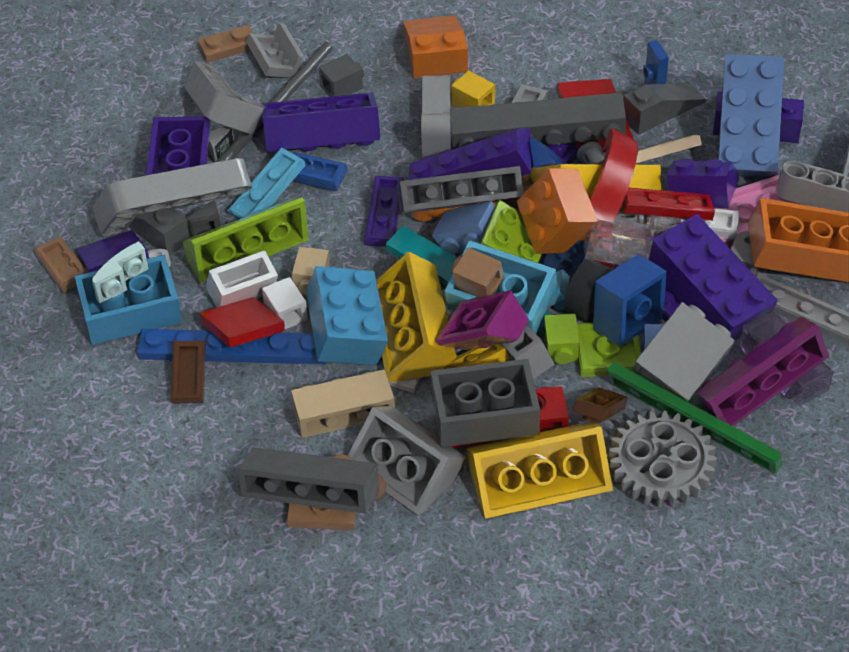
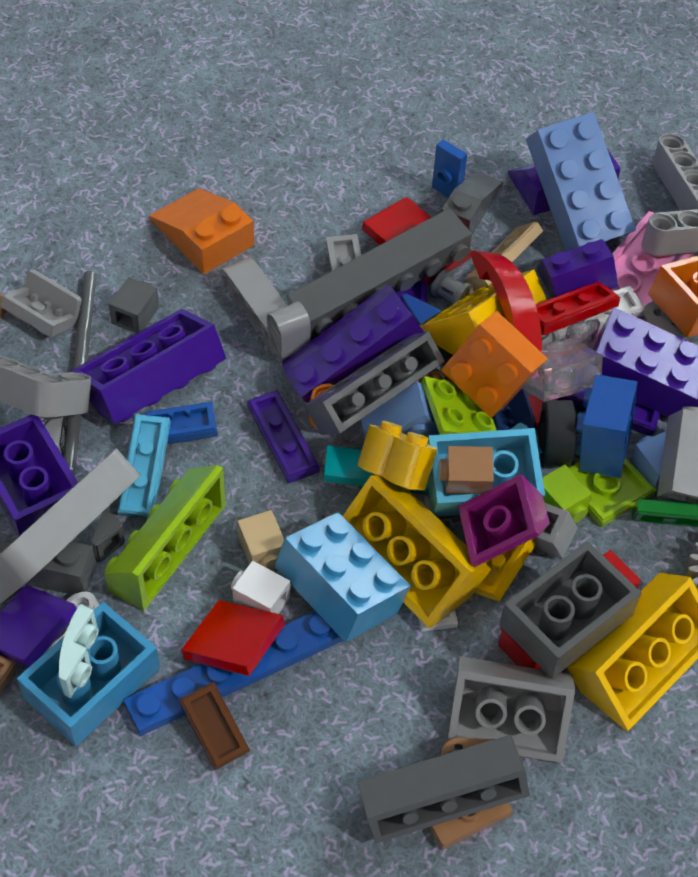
camera: 35 degrees left, 5 degrees up
(241, 279) = (201, 590): white brick -> none
(340, 402) = (403, 677): tan brick -> none
(438, 246) = (397, 456): none -> yellow brick
(472, 91) = (284, 266): yellow brick -> none
(600, 405) = (656, 551): reddish brown plate -> none

